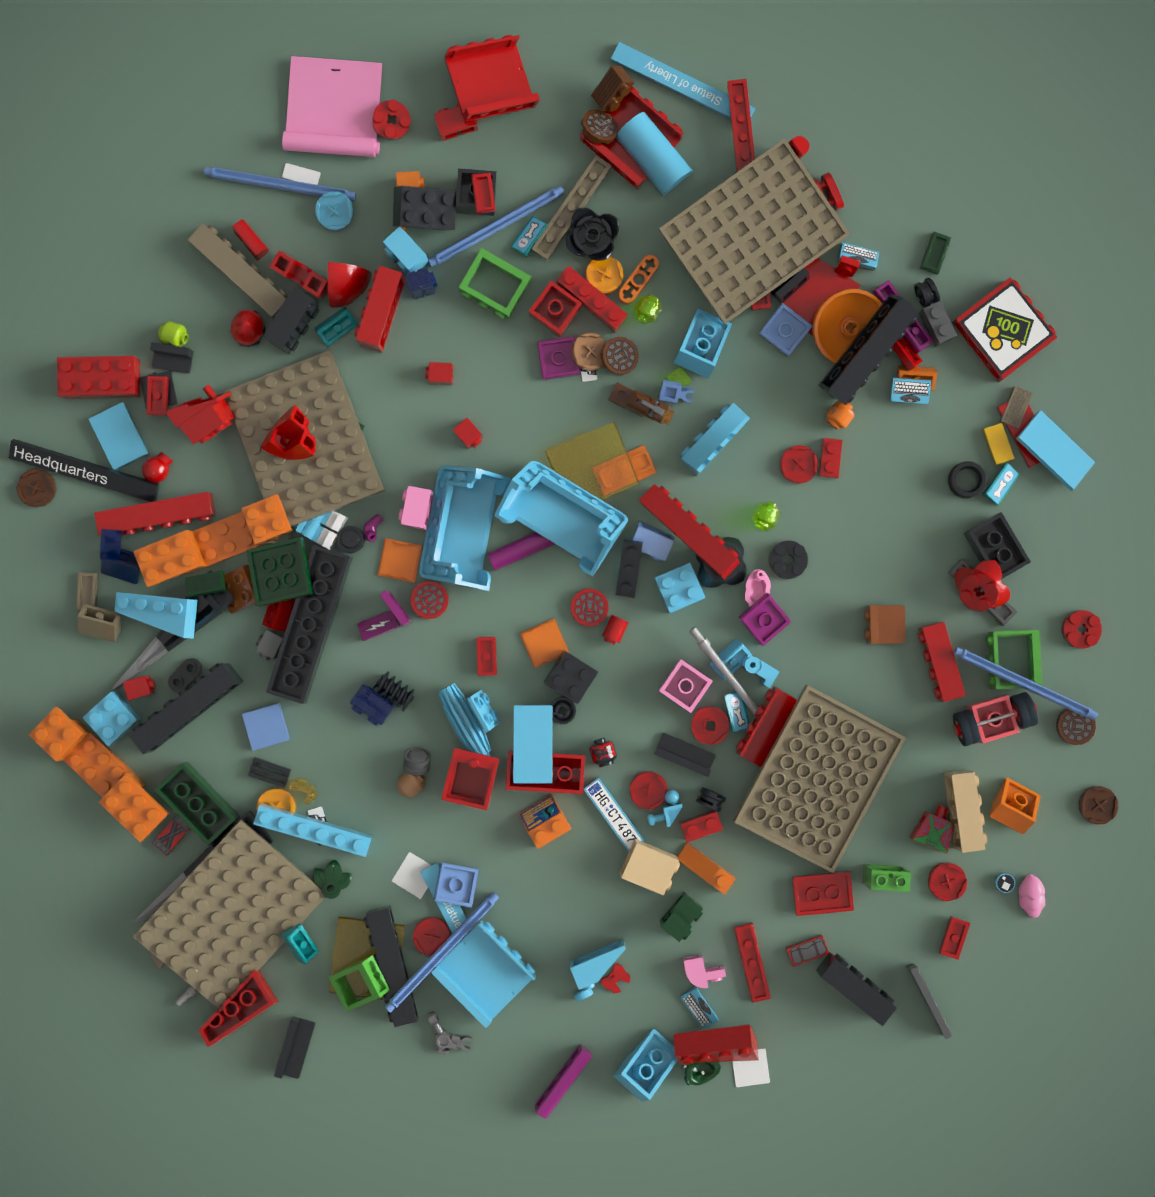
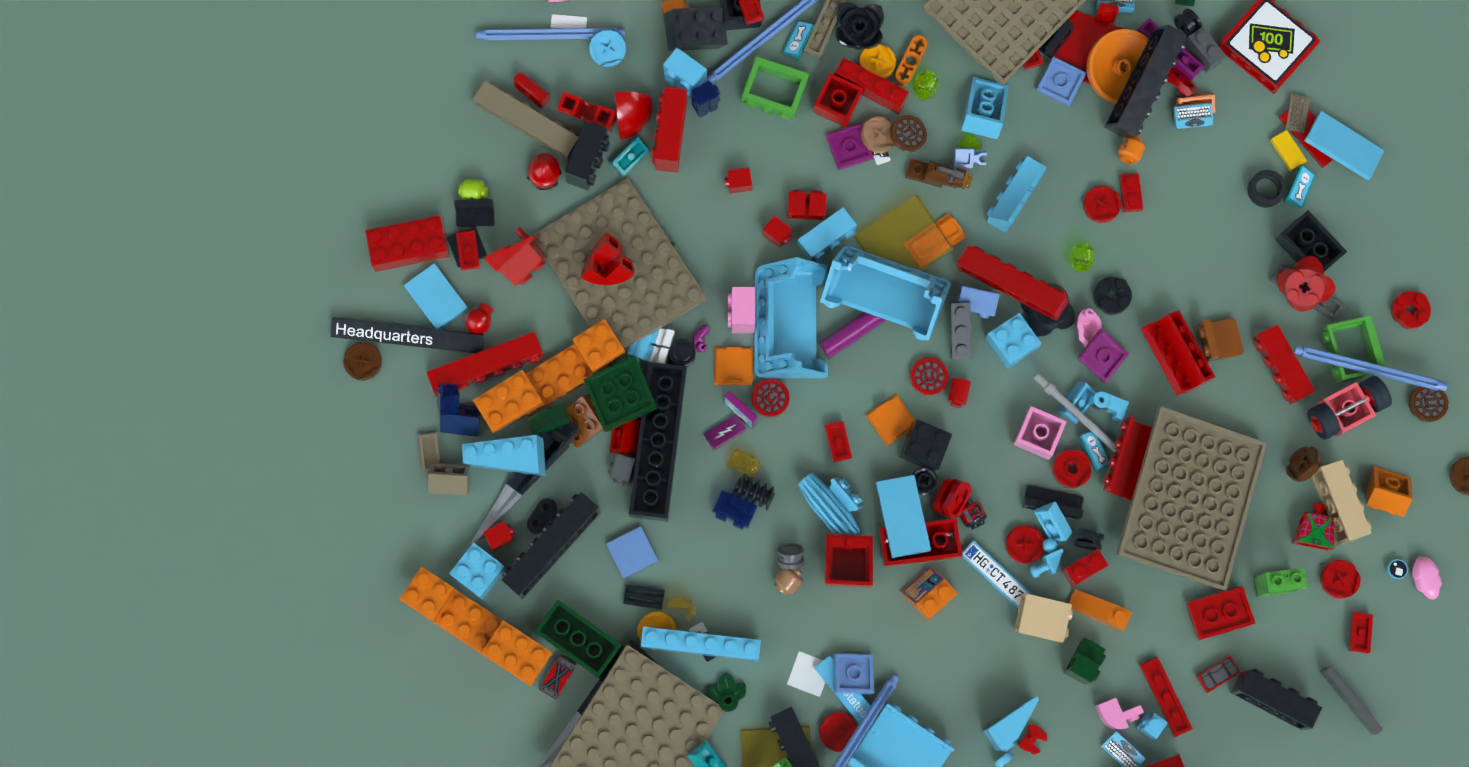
camera: 10 degrees left, 10 degrees down
(390, 660) = (743, 463): none -> clear yellow bracket
(502, 411) = (807, 206): none -> red piece
(517, 446) = (827, 235): none -> medium azure brick
(585, 733) = (952, 497): none -> red brick
(679, 776) = (1053, 522): none -> medium azure slope
(731, 988) = (1151, 725): none -> medium azure brick
(838, 631) = (1178, 353): none -> red brick
(937, 765) = (1304, 464): none -> reddish brown tile

